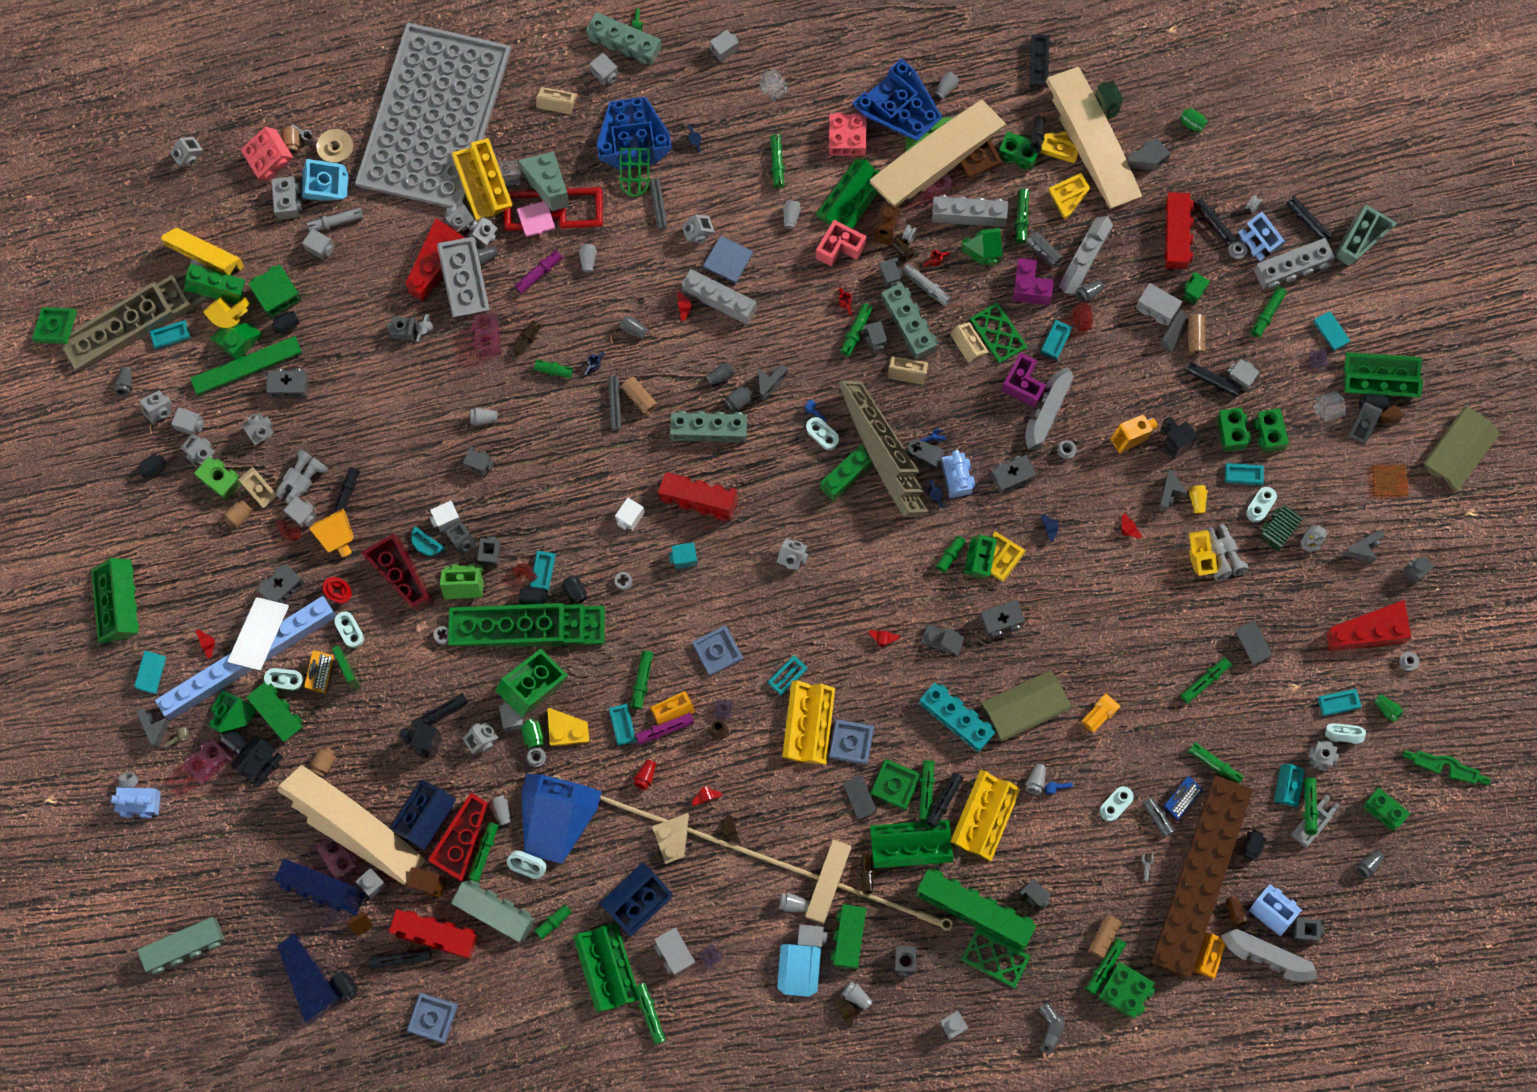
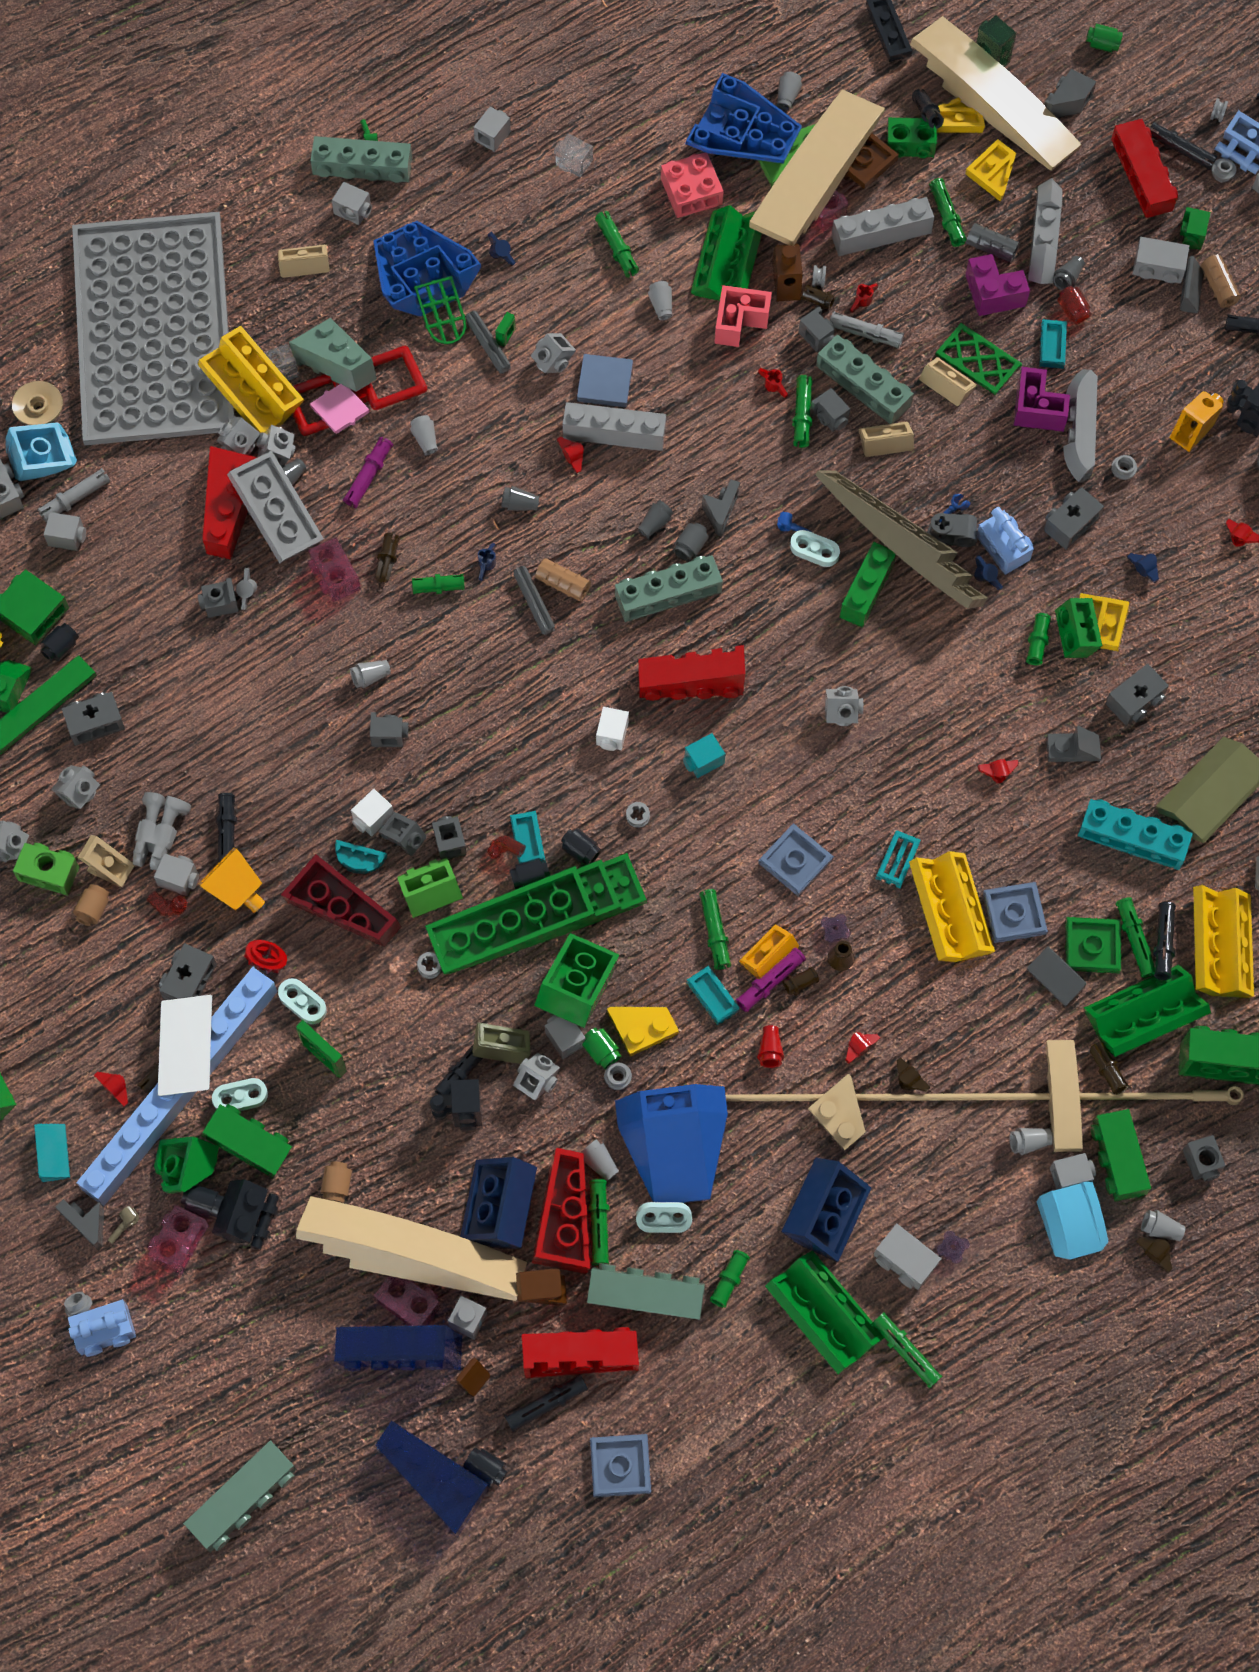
camera: 25 degrees left, 5 degrees down
(319, 672) = (283, 1070): slope -> none
(467, 706) = (501, 1043): none -> olive slope
(673, 199) = (505, 329): none -> green tile
(684, 737) = (800, 981): none -> dark brown pin
(984, 247) = (921, 262): green slope -> none

